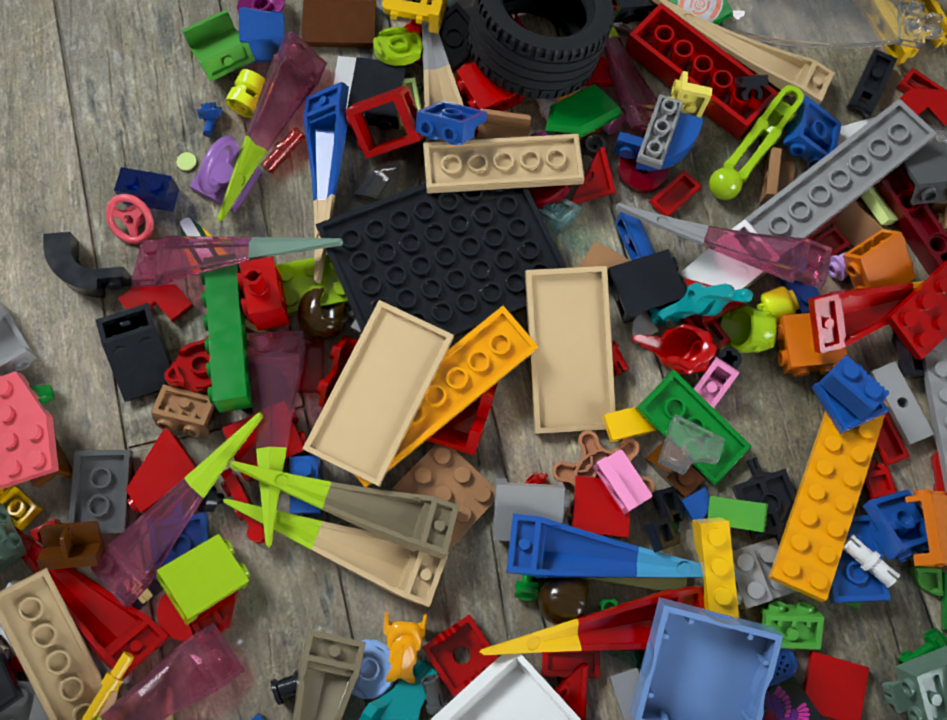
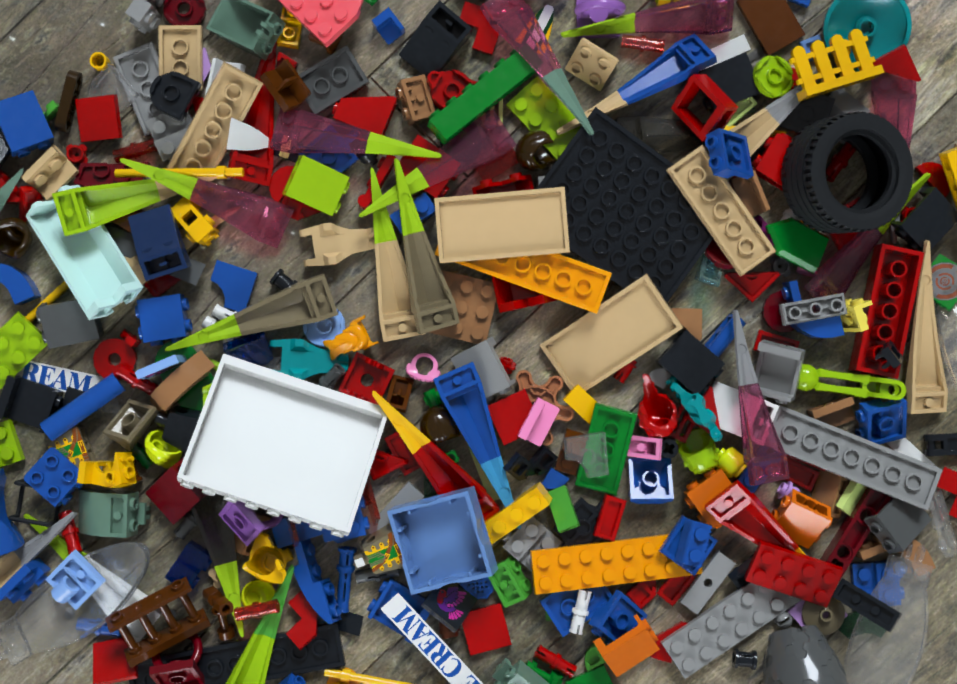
camera: 65 degrees right, 15 degrees up
(86, 393) = (388, 26): none -> blue panel
(93, 628) = (245, 137): none -> white sticker
(263, 293) = (524, 103): red brick -> none
(269, 207) = (591, 64): none -> tan bracket
(283, 596) = (336, 243): none -> tan animal
(482, 594) = (412, 371): none -> bright pink piece
(499, 623) = (400, 392): none -> reddish brown slope
(705, 200) = (779, 370): none -> light grey panel
(755, 400) = (650, 481): none -> blue slope
(774, 466) = (609, 517): none -> red tile
(913, 626) = (555, 661): none -> red pin

